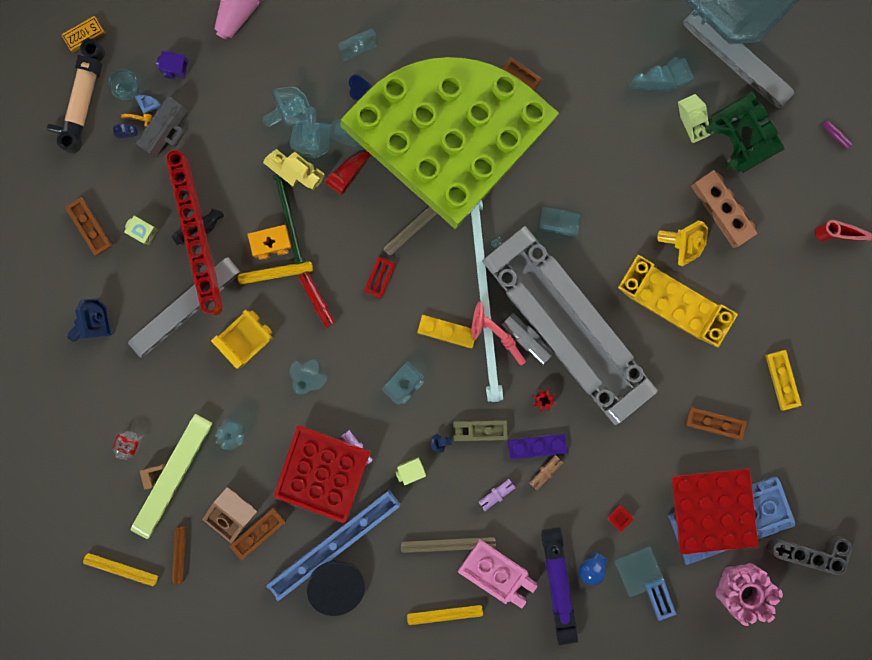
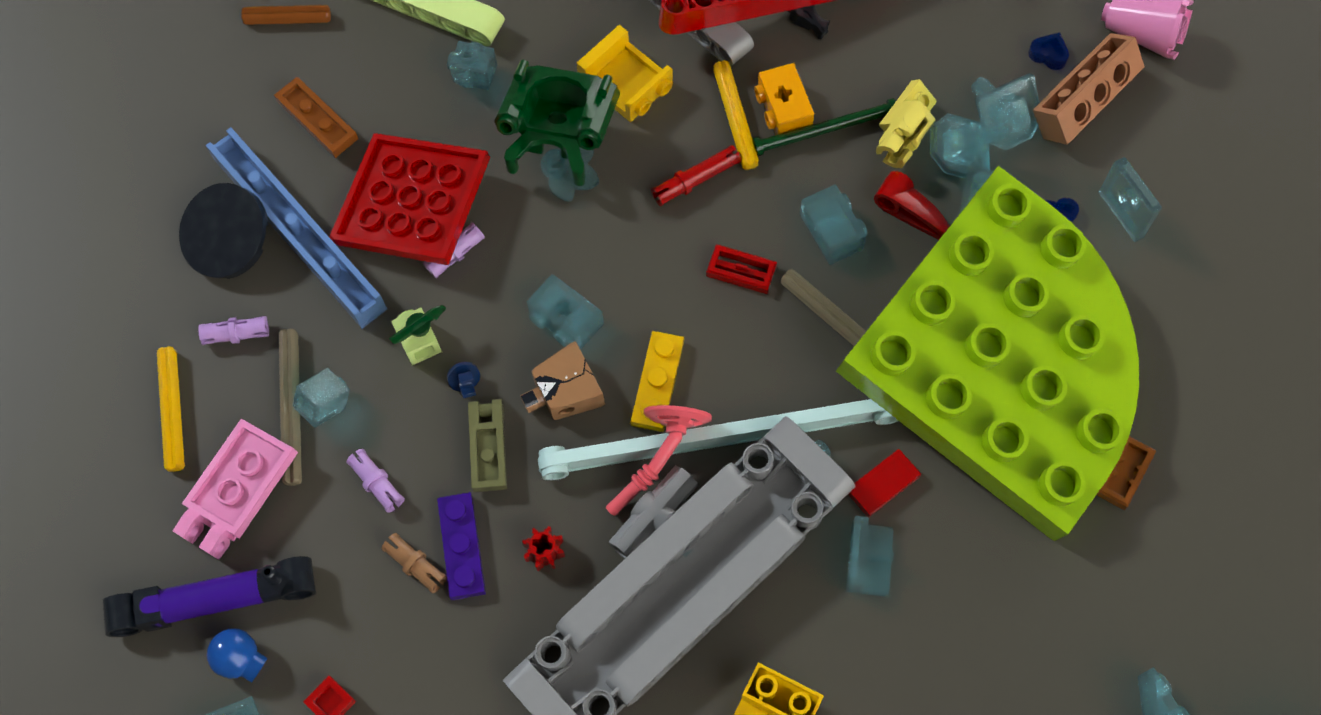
camera: 85 degrees right, 20 degrees down
(229, 515) = (348, 75): medium nougat slope -> none
(245, 74) = (1049, 50): none -> clear blue tile
(262, 384) = (556, 110): none -> dark green piece
(278, 55) = (1088, 88): none -> nougat brick
(356, 220) = (833, 224): none -> clear light blue brick
(399, 579) = (233, 330): none -> lavender pin
(410, 469) = (418, 324): none -> dark green piece
(447, 525) = (321, 397): none -> clear light blue brick
(448, 385) = (564, 385): none -> medium nougat torso
(516, 209) = (884, 482): none -> red tile

